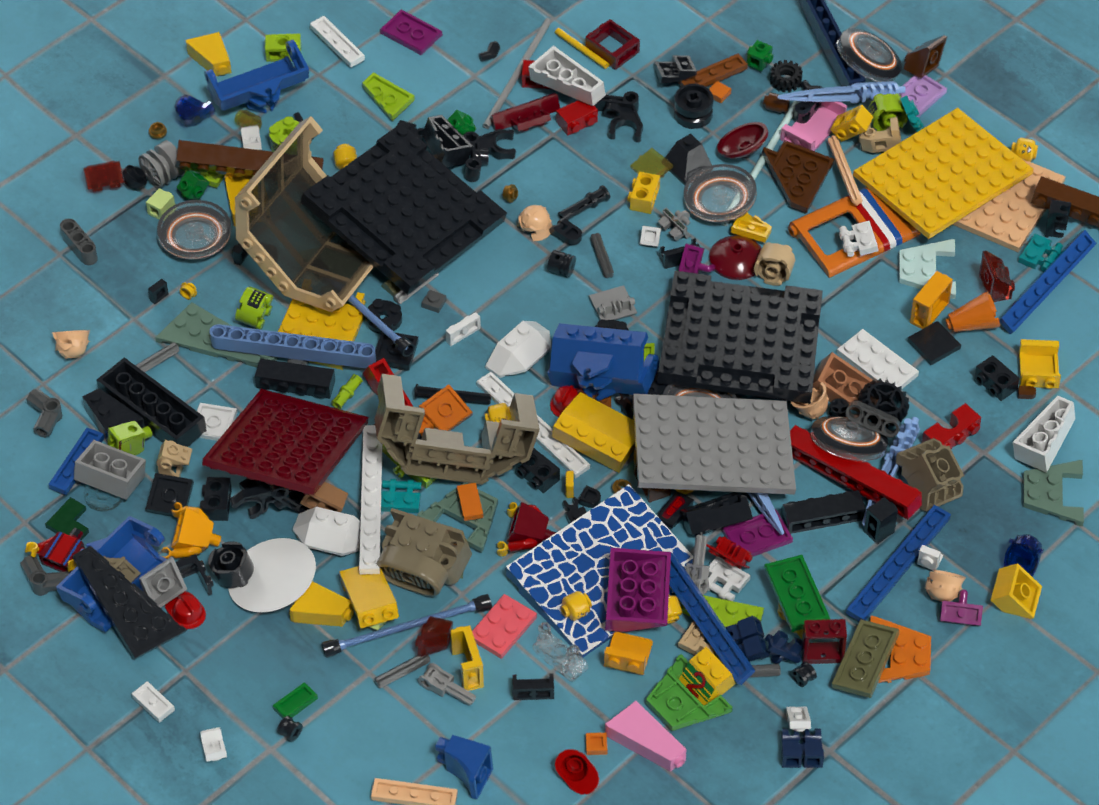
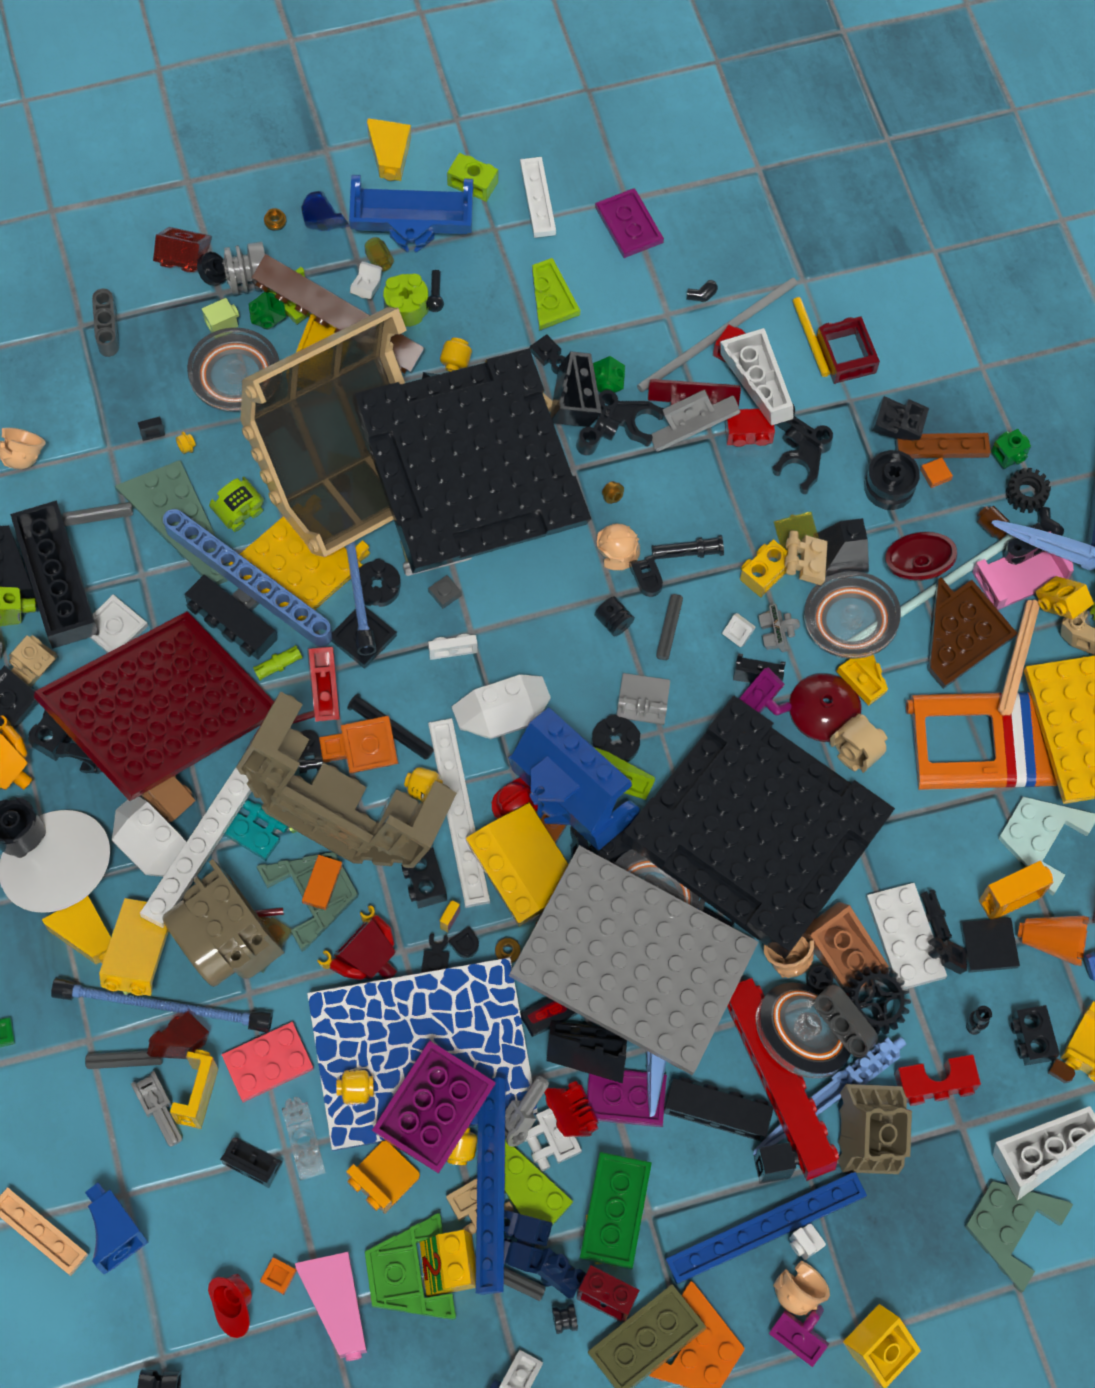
camera: 25 degrees right, 15 degrees up
(536, 123) = (692, 417): none -> light grey bracket
(669, 171) = (813, 558): none -> tan plate
(864, 238) = (986, 763): white plate -> none
(889, 341) = (936, 915): none -> black pin
(913, 357) = (951, 954): none -> black plate
(957, 375) = (975, 1018): none -> black pin
(1025, 551) = (918, 1302): clear blue helmet -> none

